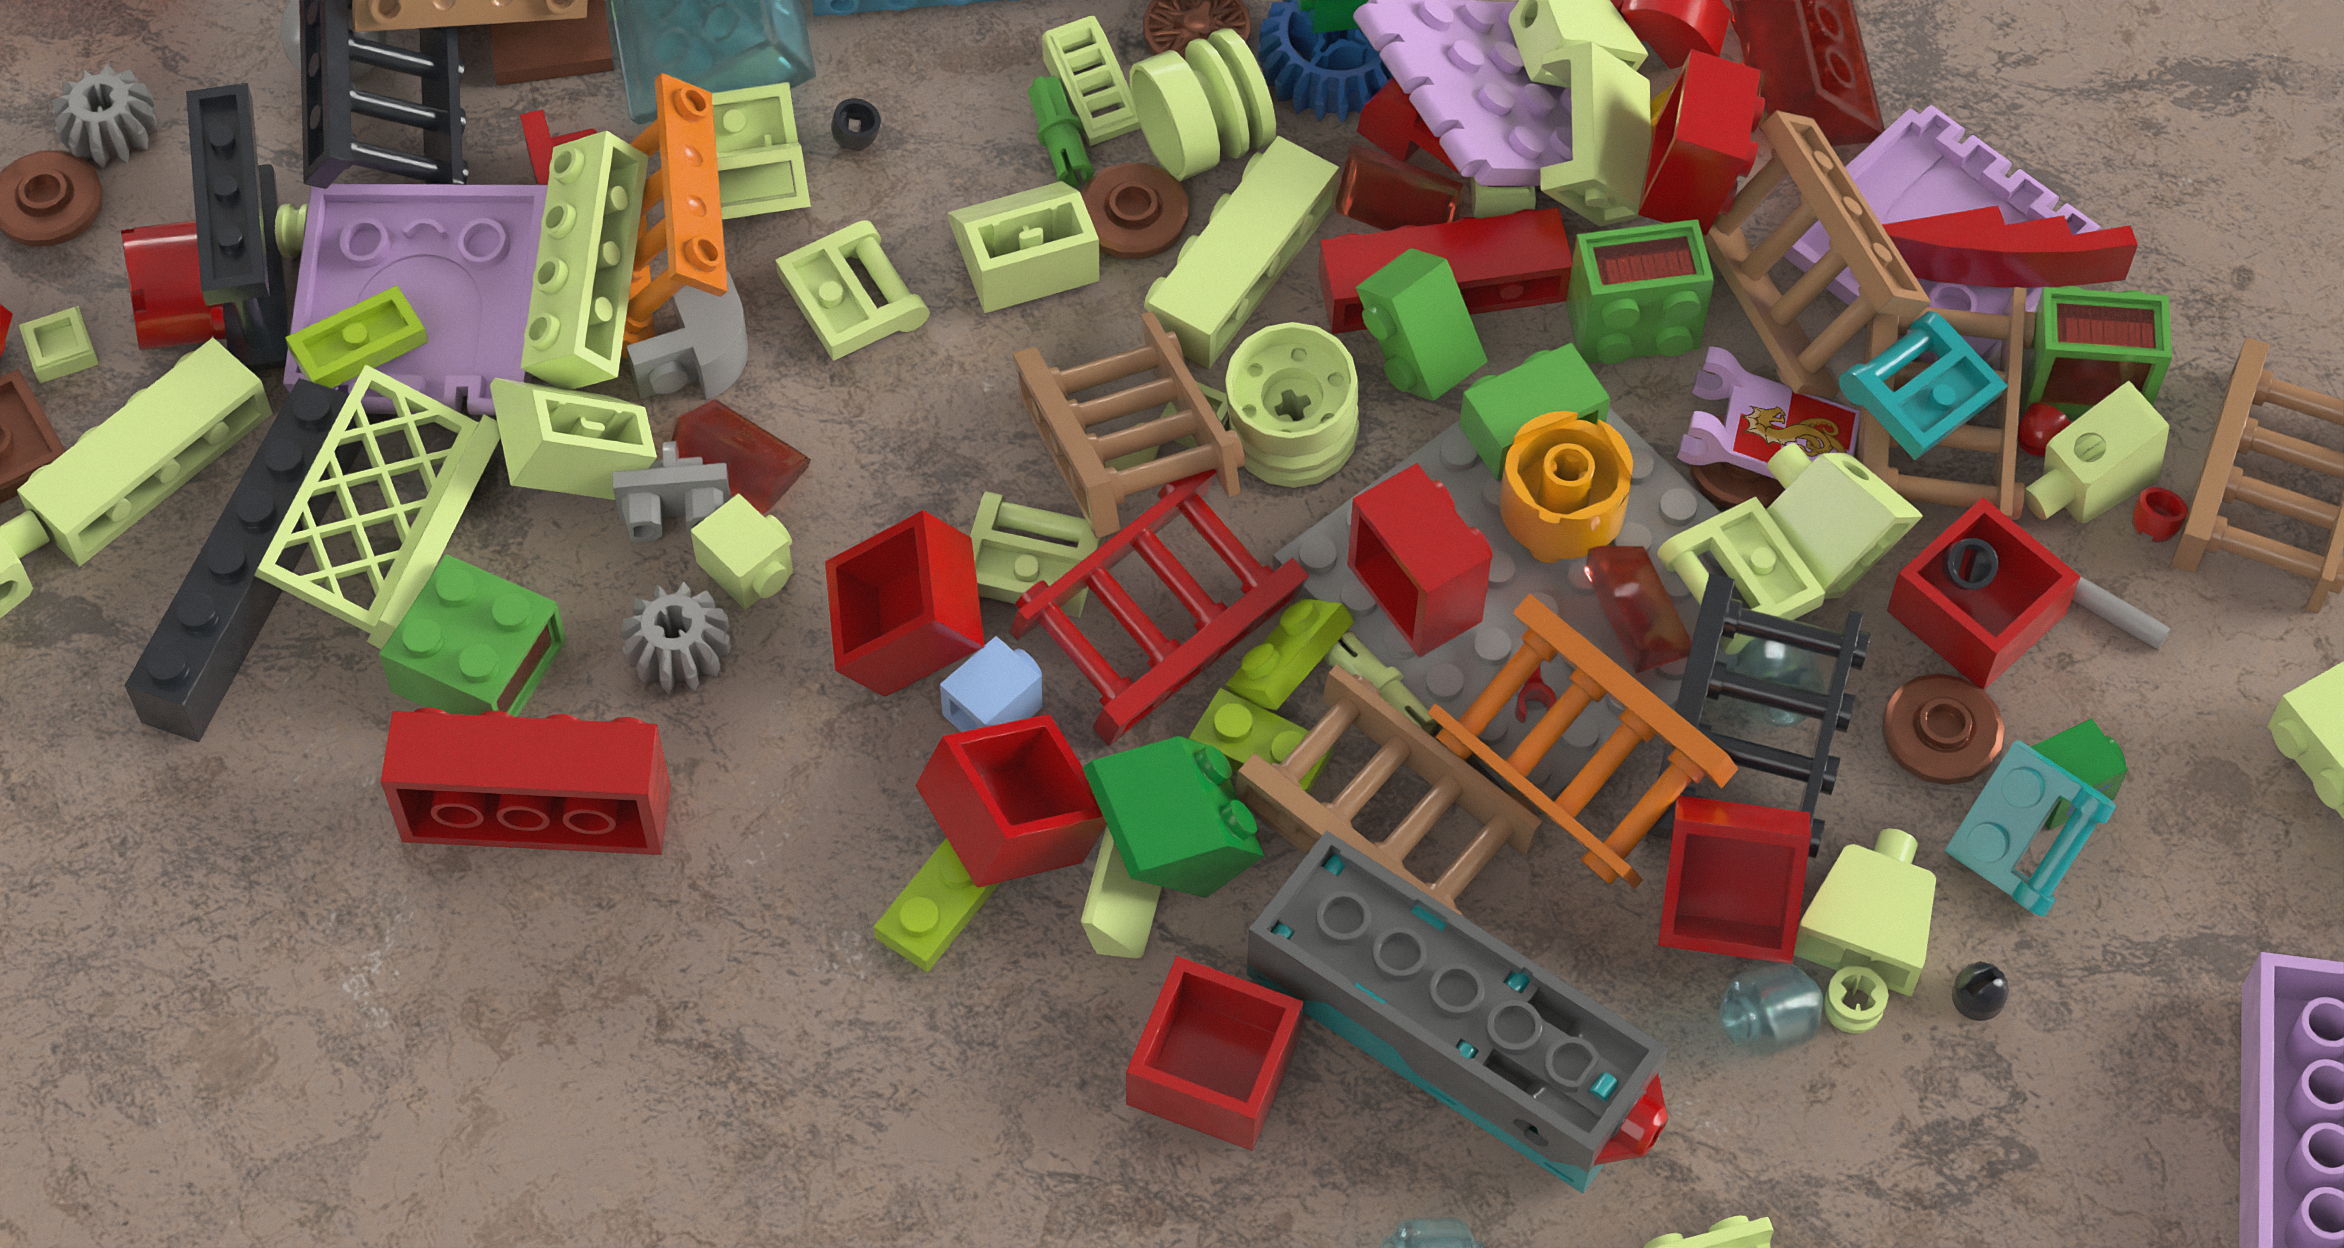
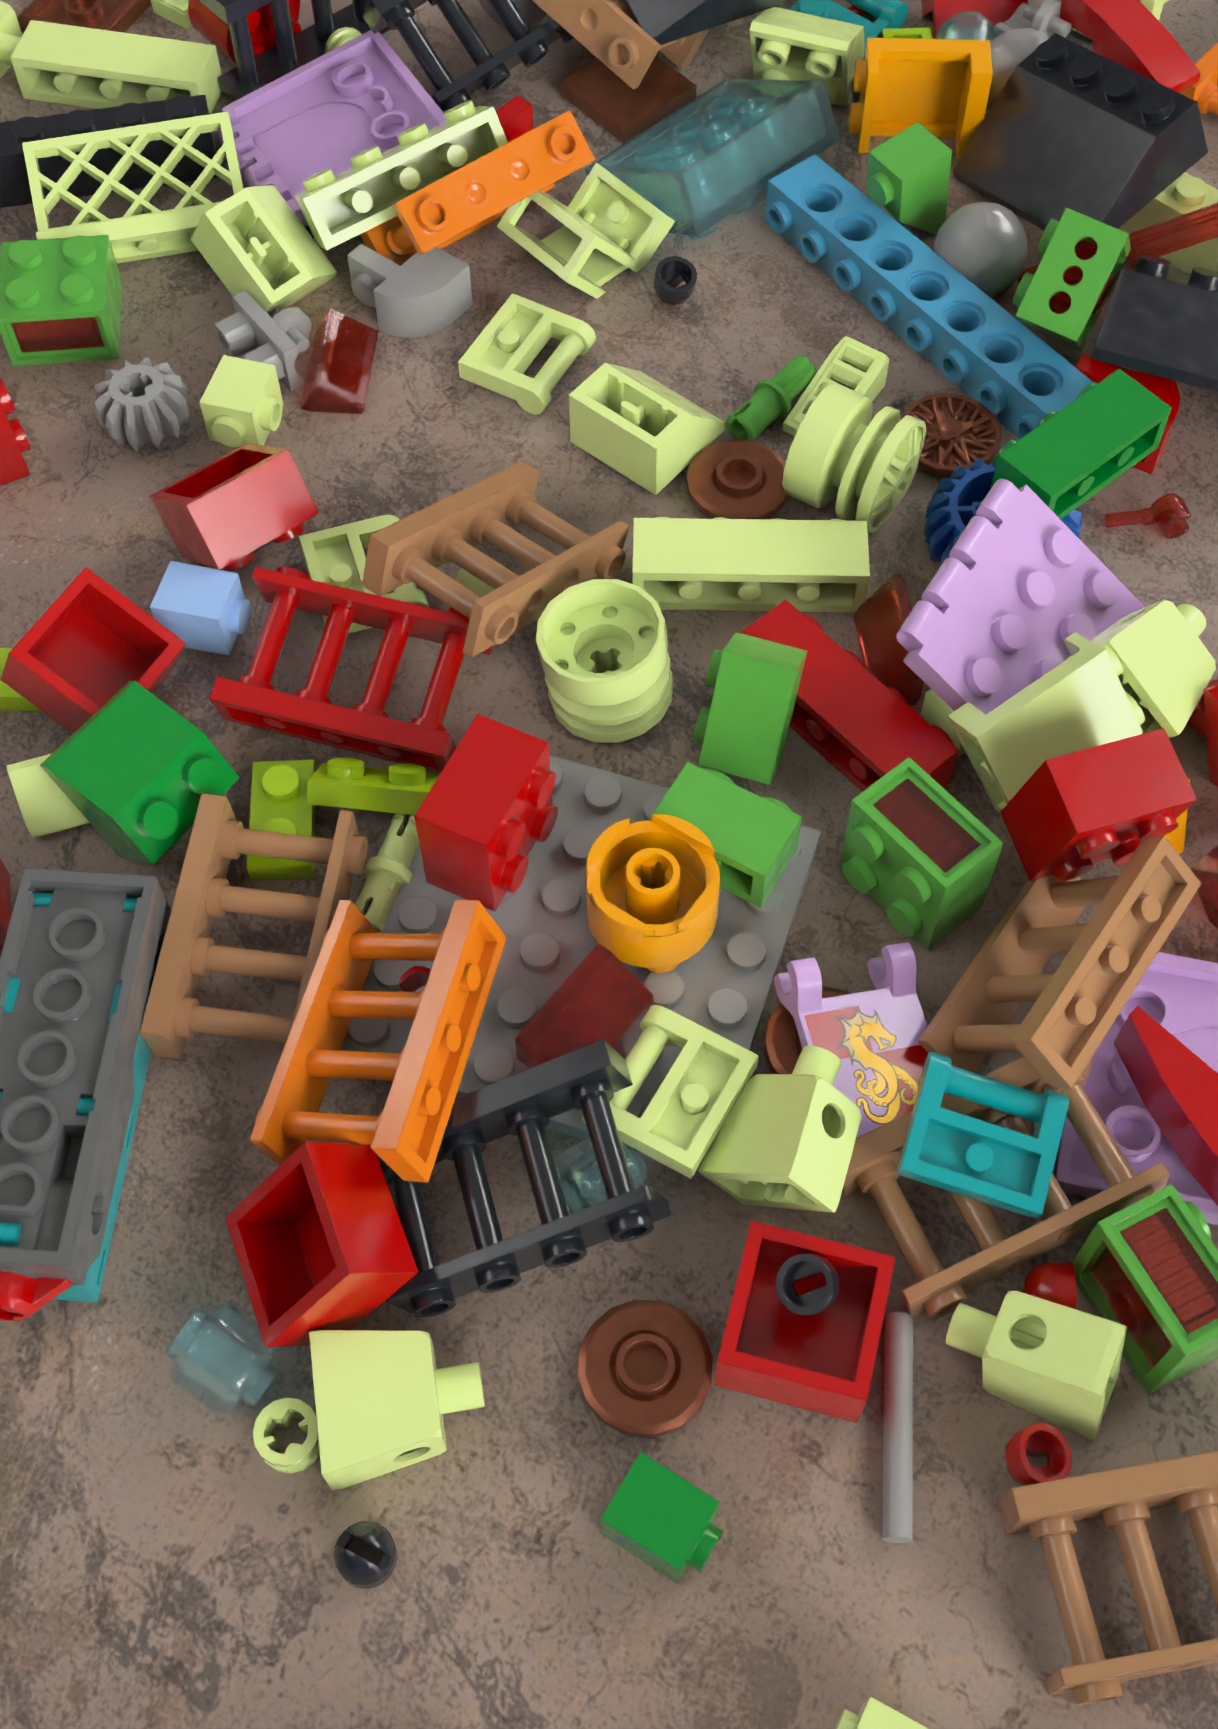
camera: 60 degrees right, 0 degrees up
(357, 336) = (266, 111): lime plate -> none
(2011, 816) = (558, 1478): teal plate -> none

